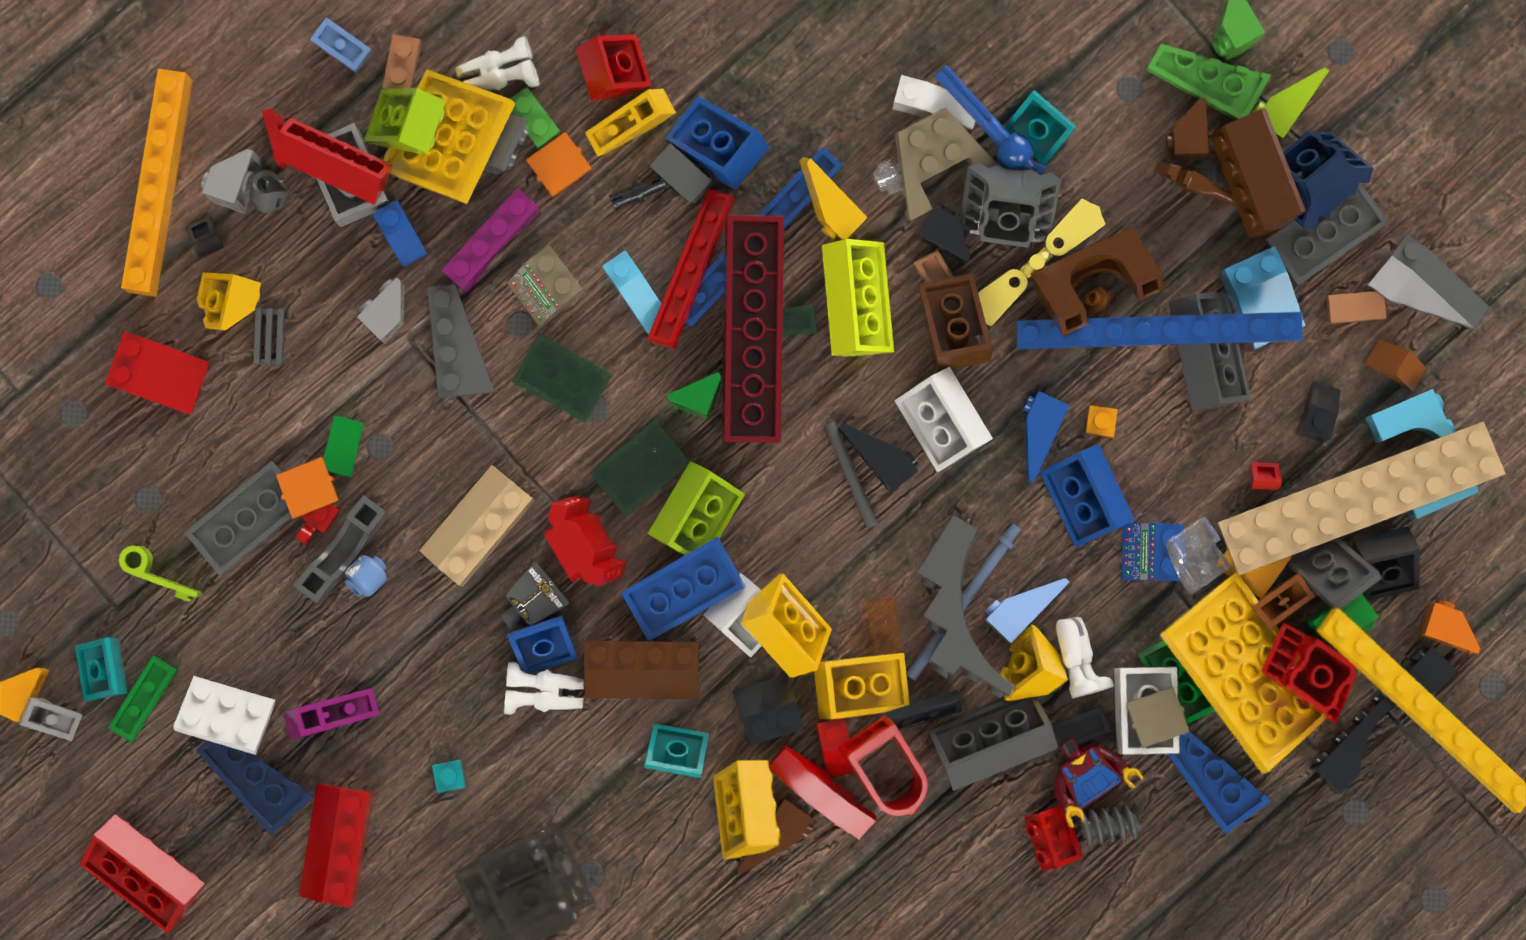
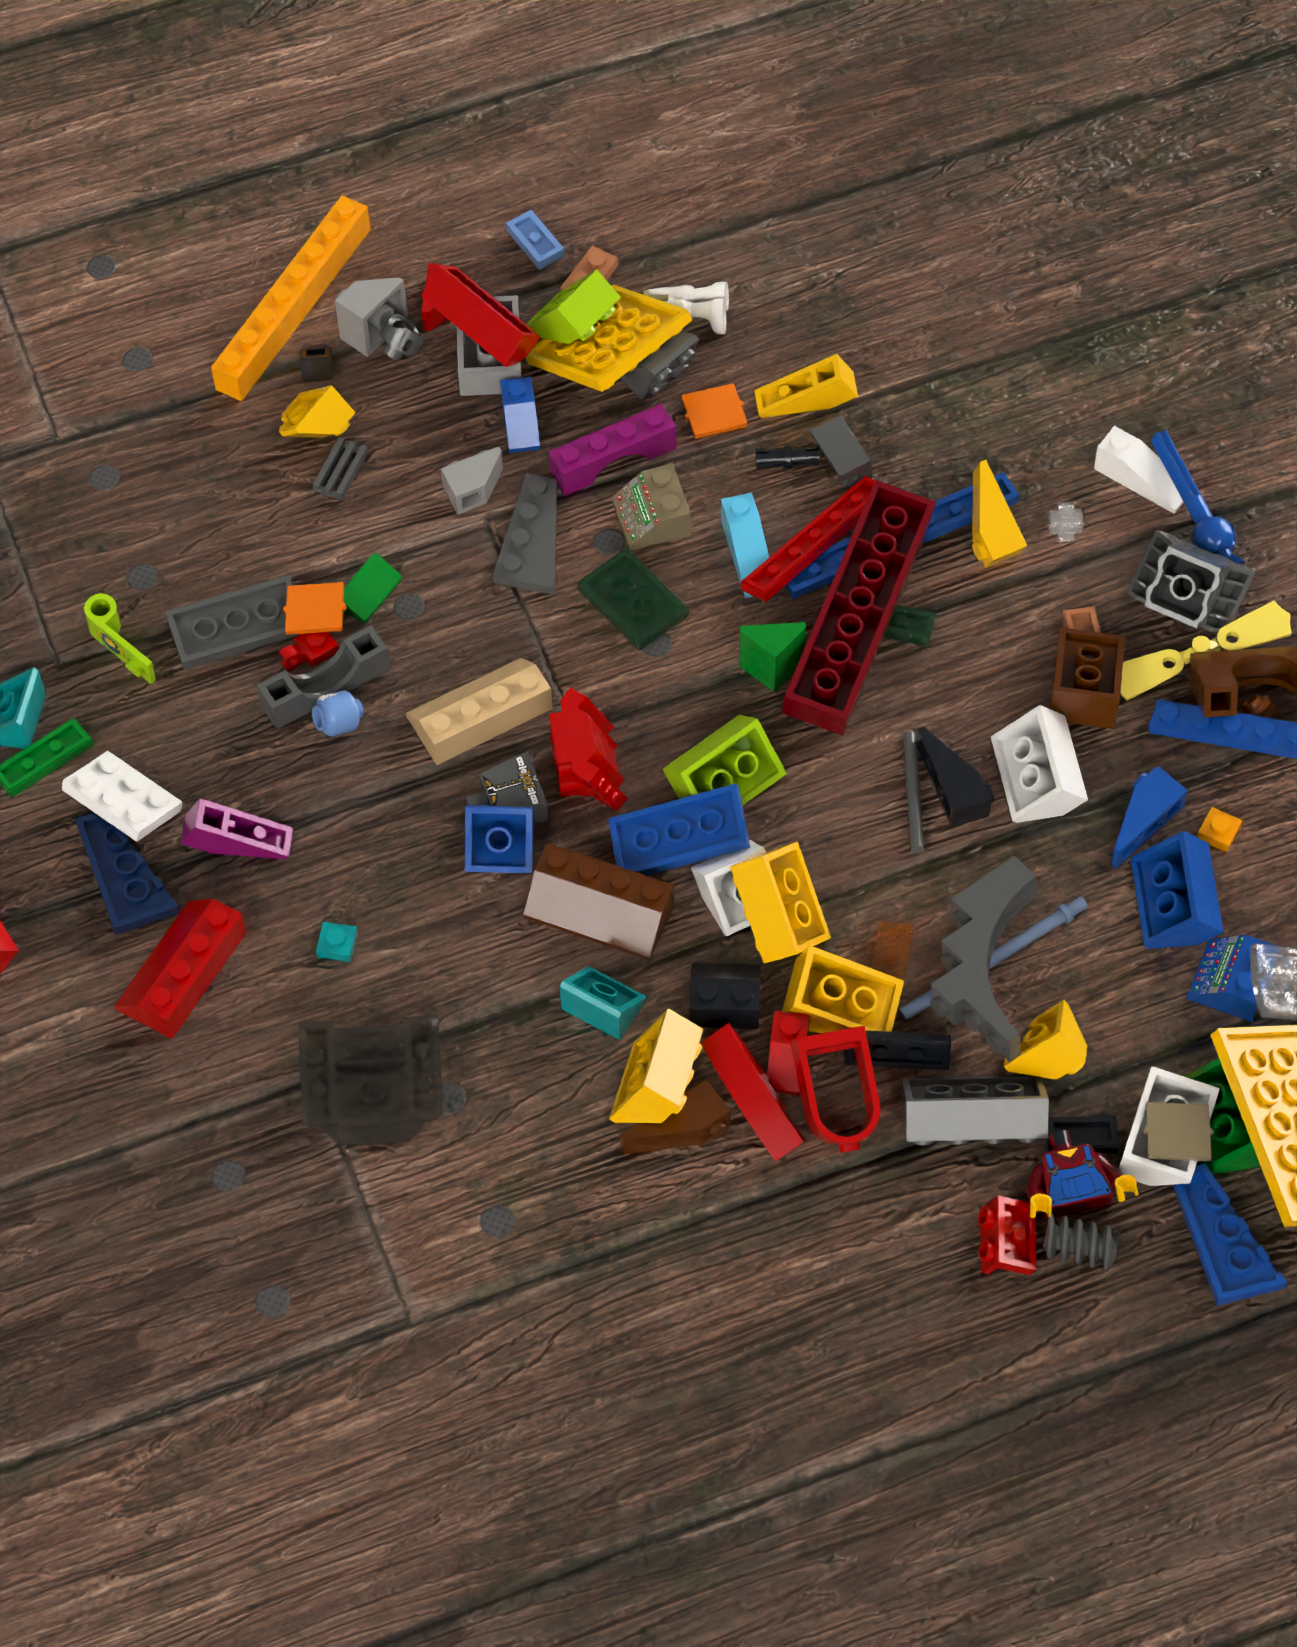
camera: 25 degrees right, 25 degrees down
(157, 373) = (207, 460): red slope -> none
(539, 123) = (707, 364): bright green plate -> none
(550, 692) = (491, 893): white piece -> none
(613, 66) = (806, 333): red slope -> none
(640, 468) = (680, 708): clear green plate -> none
(717, 142) = (896, 437): blue slope -> none
(857, 298) = (987, 622): neon yellow slope -> none
(929, 149) = (1120, 503): dark tan wing -> none
(945, 233) = (1106, 589): black slope -> none
(1017, 612) = (1050, 981): light blue slope -> none
(1042, 125) = (1257, 524): teal slope -> none
(1077, 658) = (1106, 1056): white piece -> none

